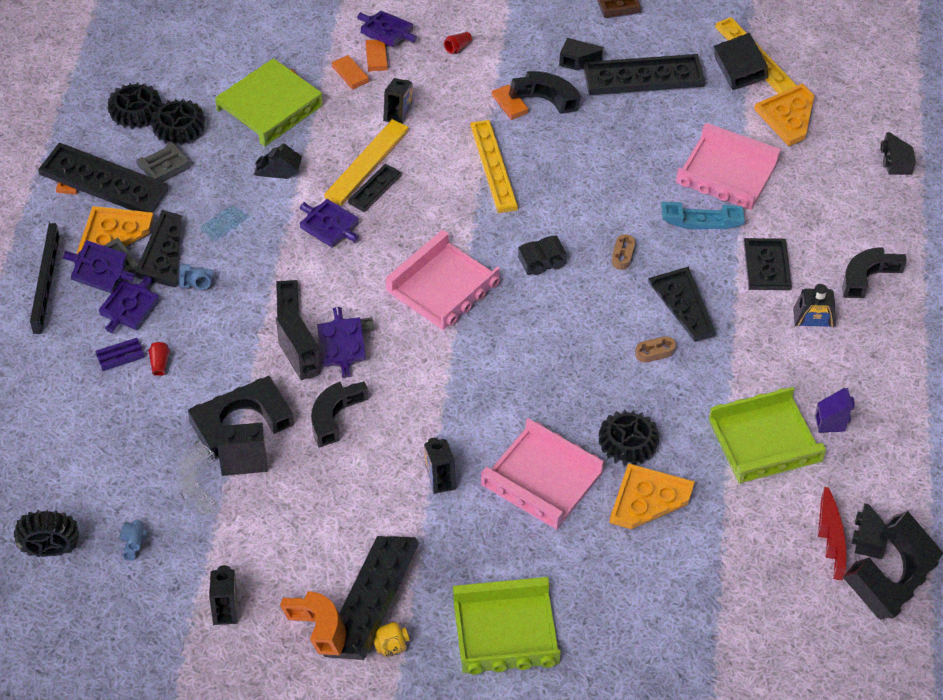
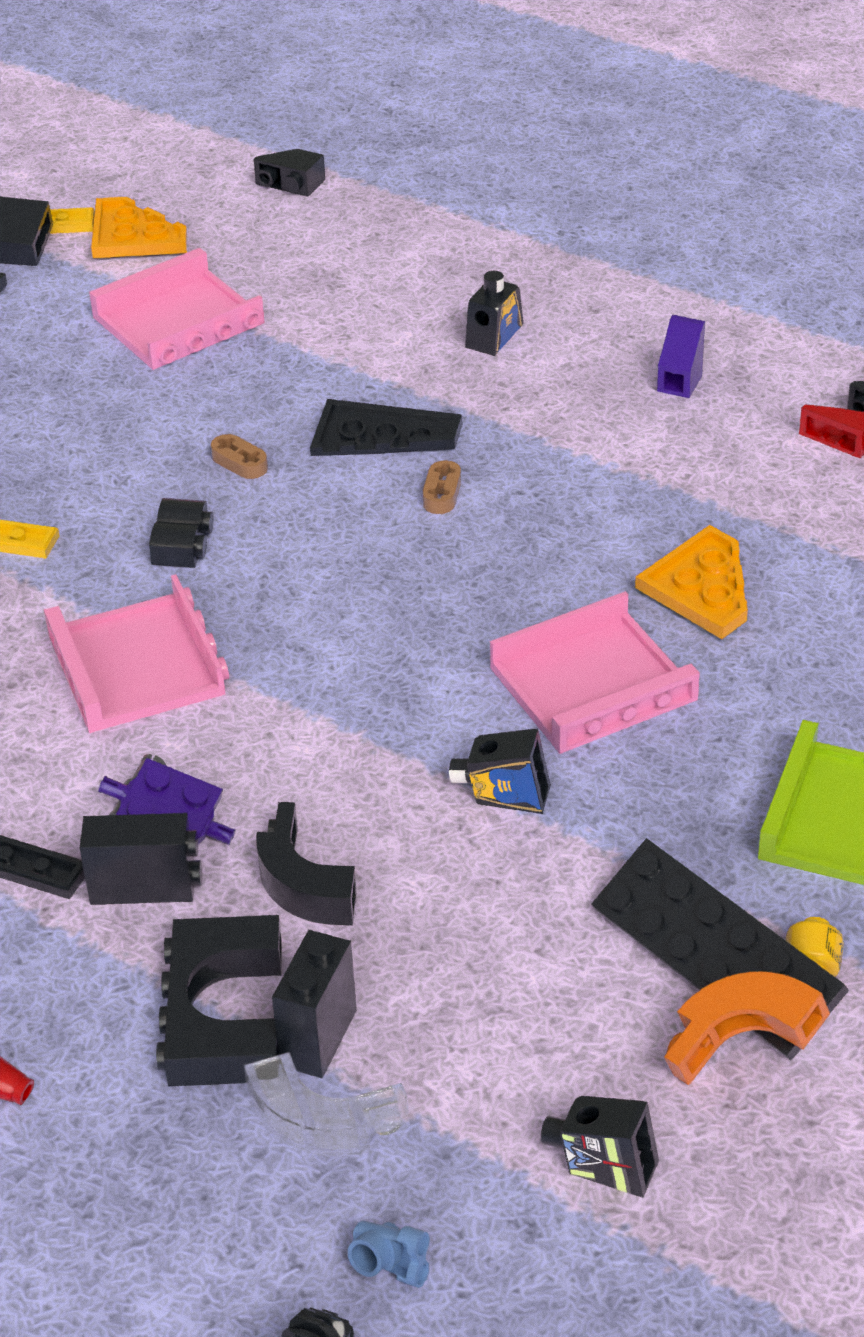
camera: 60 degrees left, 10 degrees down
(634, 447) = (586, 561): black gear -> none
(727, 217) = (261, 347): dark azure slope -> none
(764, 435) = (667, 442): lime panel -> none
(767, 264) = (372, 339): black tile -> none
(868, 263) = (454, 262): black arch -> none

